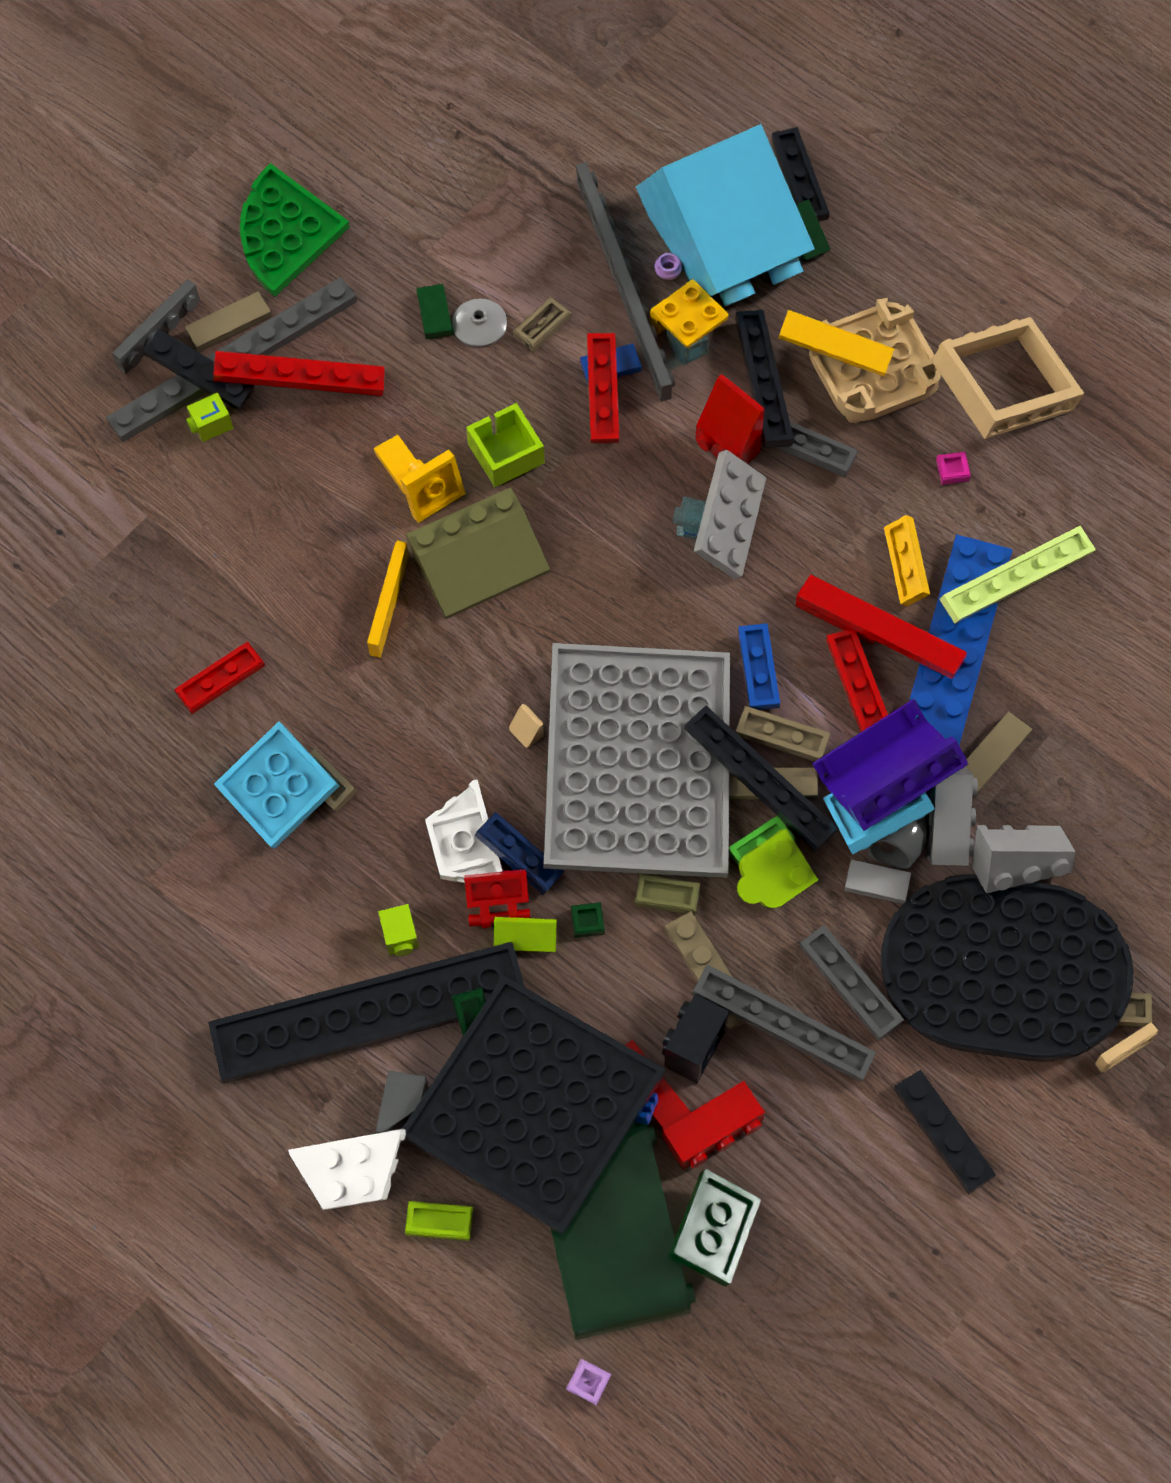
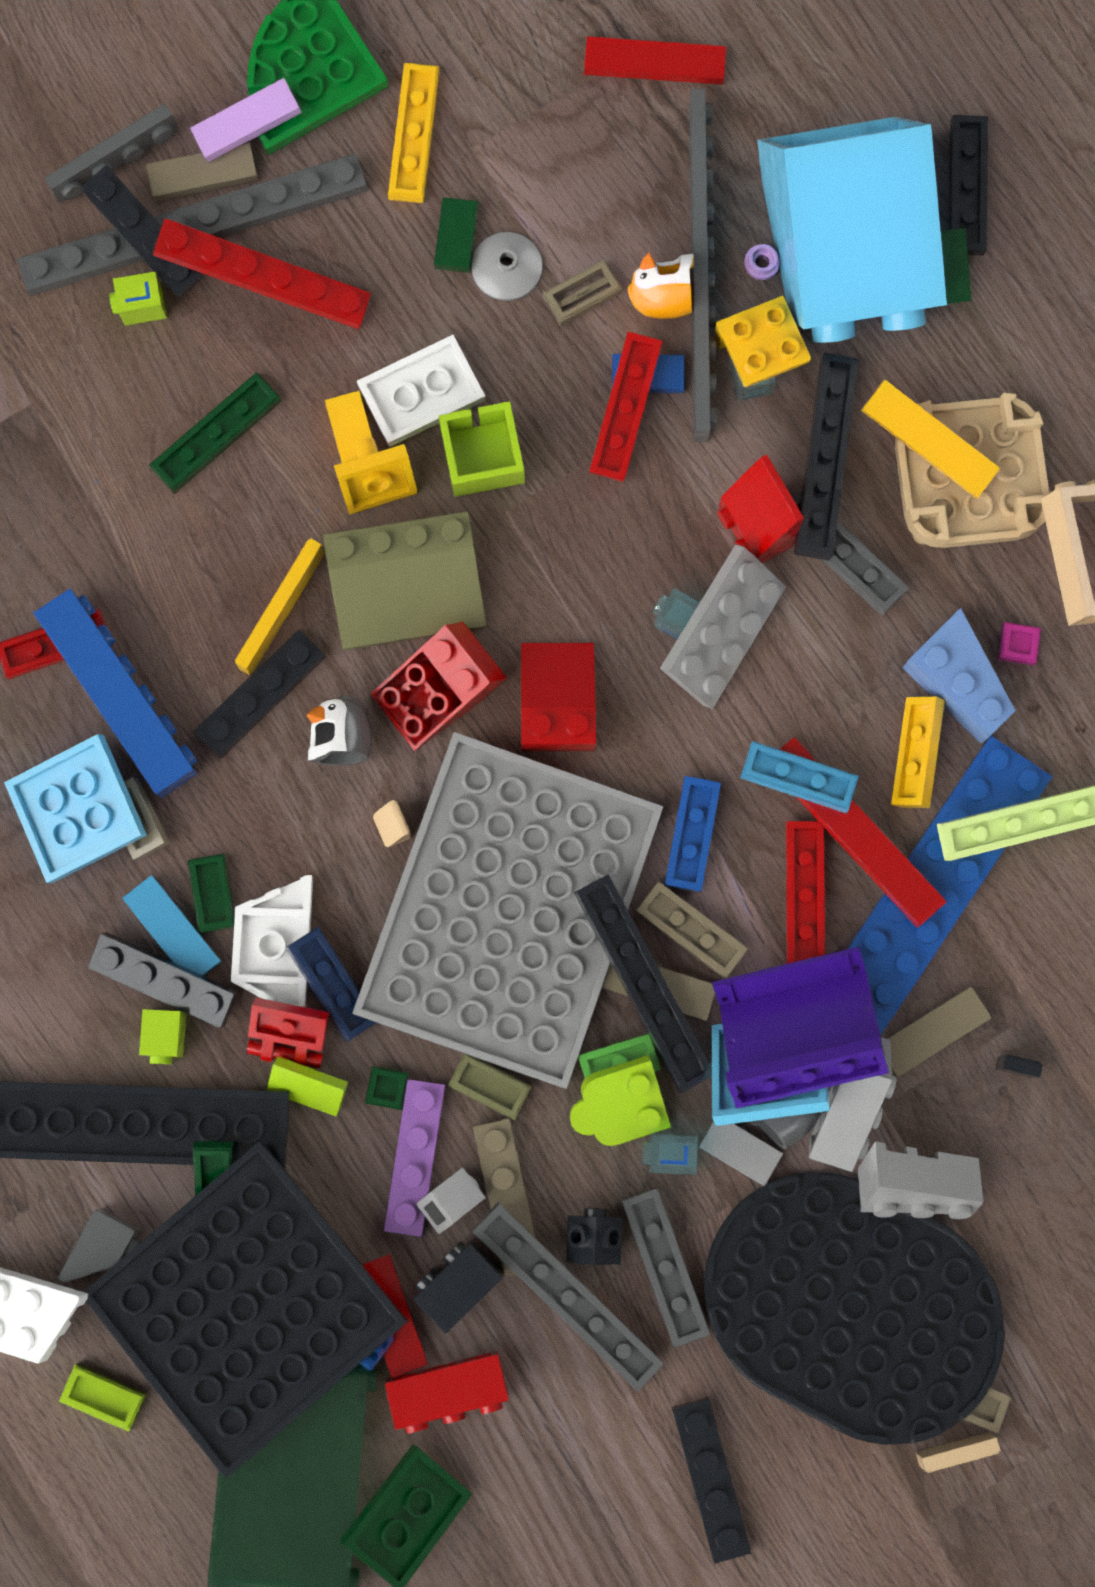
camera: 15 degrees right, 15 degrees up
(251, 274) = (245, 120): none -> lavender tile
(282, 694) = (116, 693): none -> blue brick
(296, 495) = (215, 432): none -> dark green tile
(379, 253) = (413, 133): none -> yellow tile
(380, 854) = (171, 927): none -> dark azure tile
(385, 890) = (163, 979): none -> plate
(392, 666) = (259, 694): none -> black plate
(402, 819) = (211, 893): none -> dark green tile
(443, 420) = (419, 388): none -> white plate
(465, 672) = (339, 732): none -> dark grey piece
(527, 619) = (438, 684): none -> red slope
(541, 157) = (655, 60): none -> red tile
(602, 302) = (662, 288): none -> light orange piece
(623, 603) = (558, 697): none -> red slope
(627, 964) = (414, 1157): none -> medium lavender plate
(667, 981) = (451, 1200): none -> light grey brick
(788, 975) = (594, 1238): none -> black brick
(824, 598) = (799, 777): none -> dark azure tile
(826, 897) = (671, 1154): none -> clear light blue brick
(916, 493) = (961, 674): none -> medium blue wedge
(1065, 756) = (1019, 1066): none -> black tile

